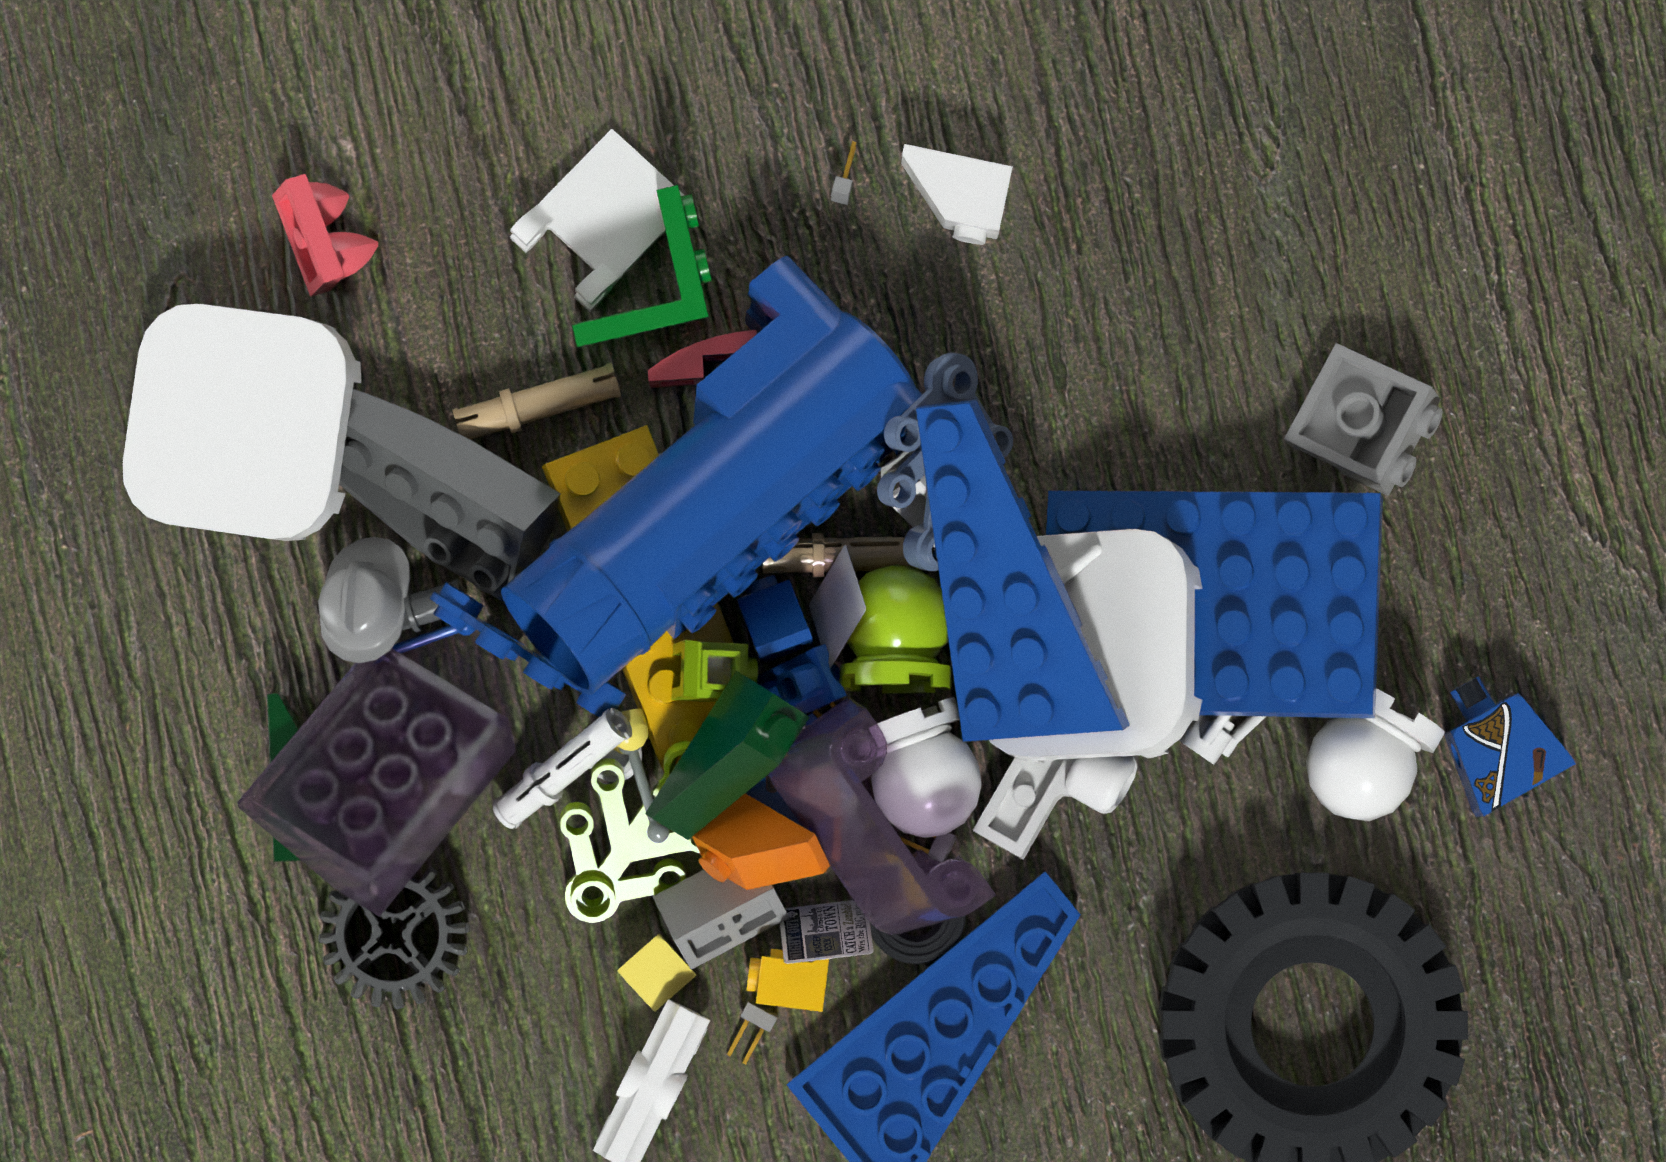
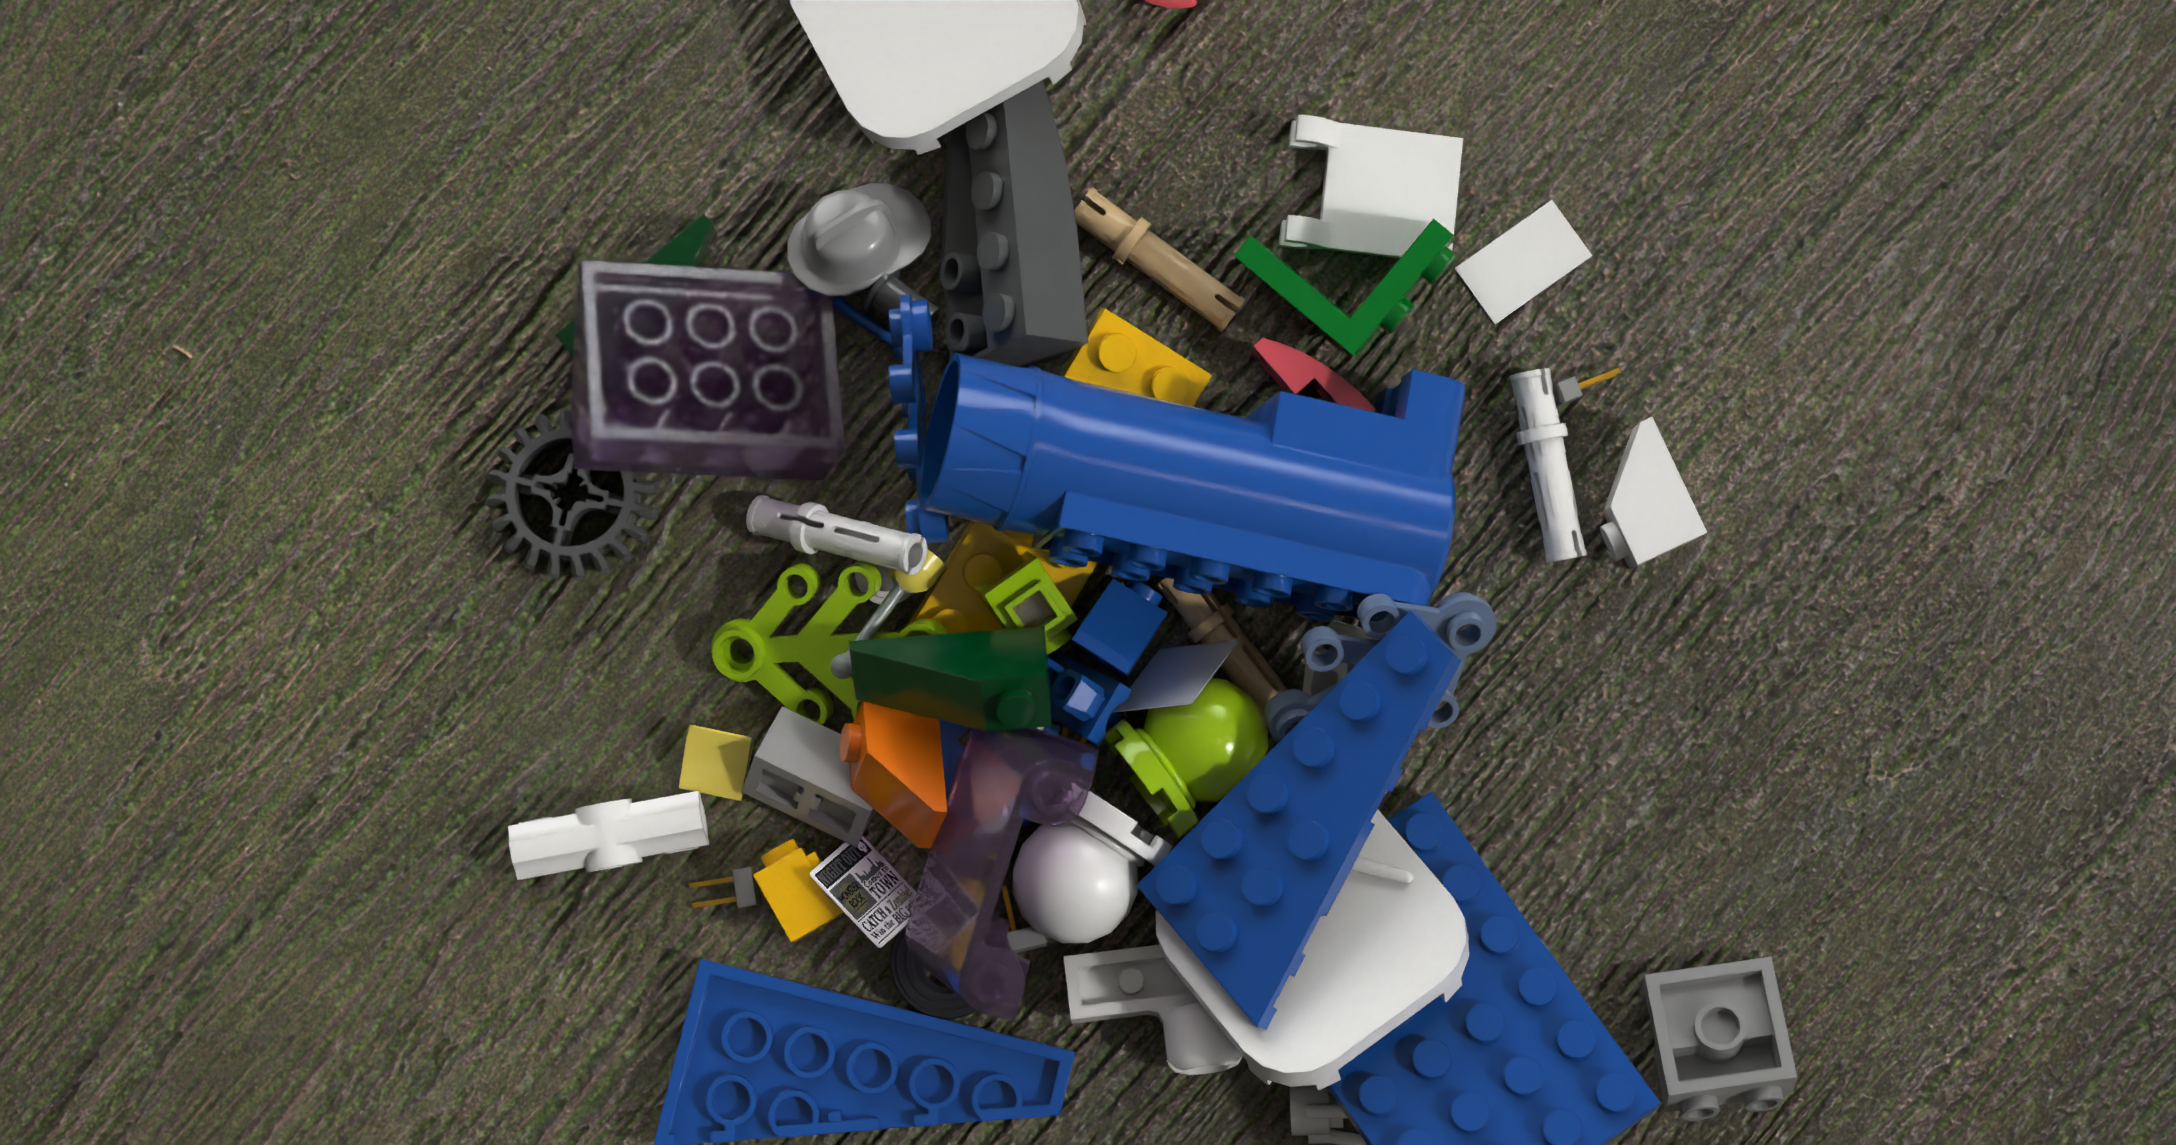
camera: 50 degrees right, 0 degrees up
(729, 151) = (1523, 262): none -> white sticker
(875, 237) = (1548, 466): none -> white pin

